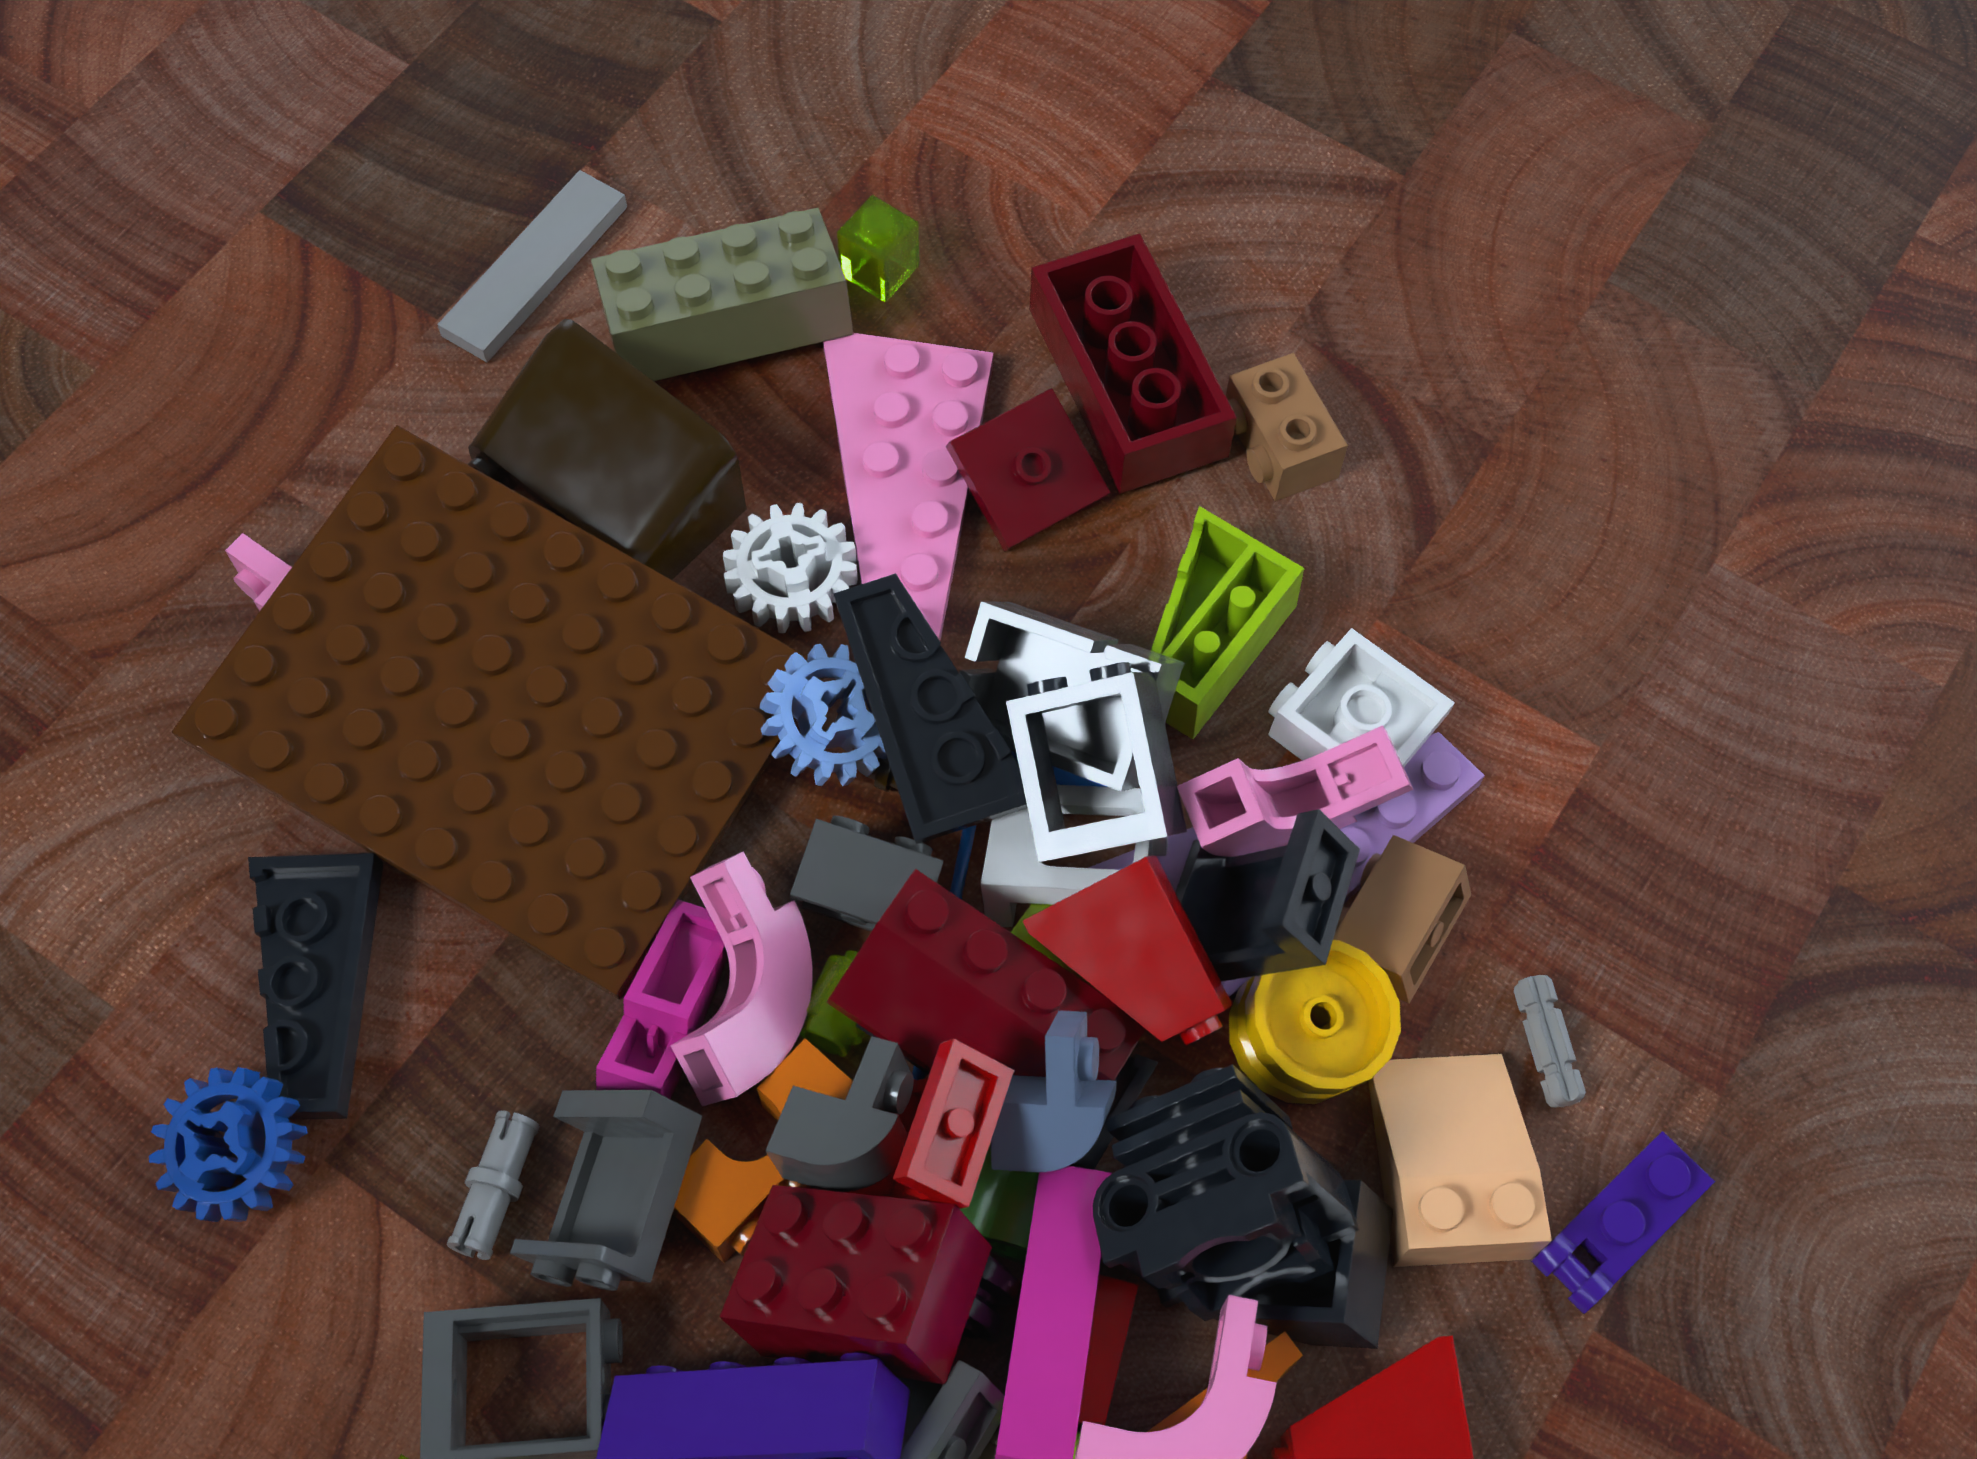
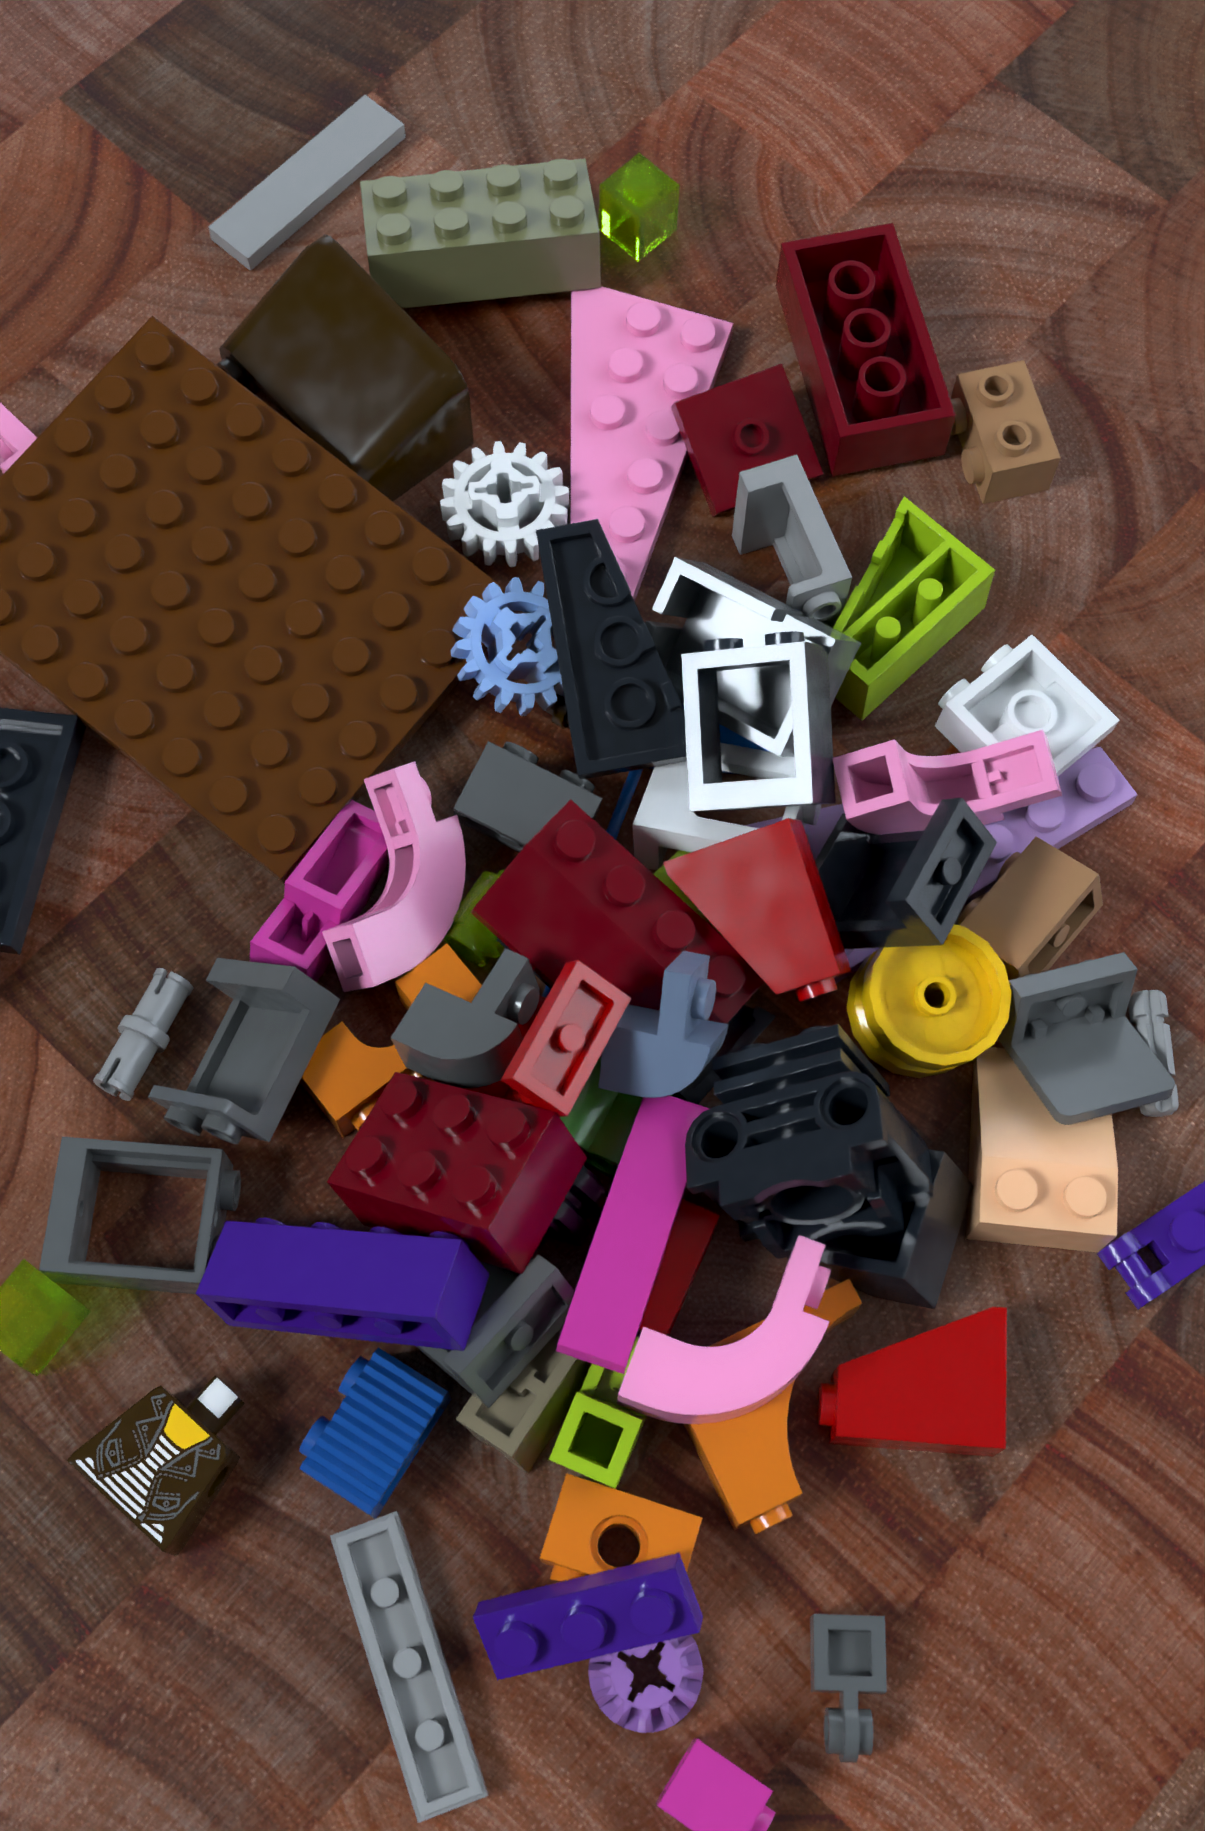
camera: 10 degrees right, 5 degrees up
(1080, 537) = (781, 510): none -> light grey panel
(1475, 1045) = (1078, 1045): none -> dark grey bracket

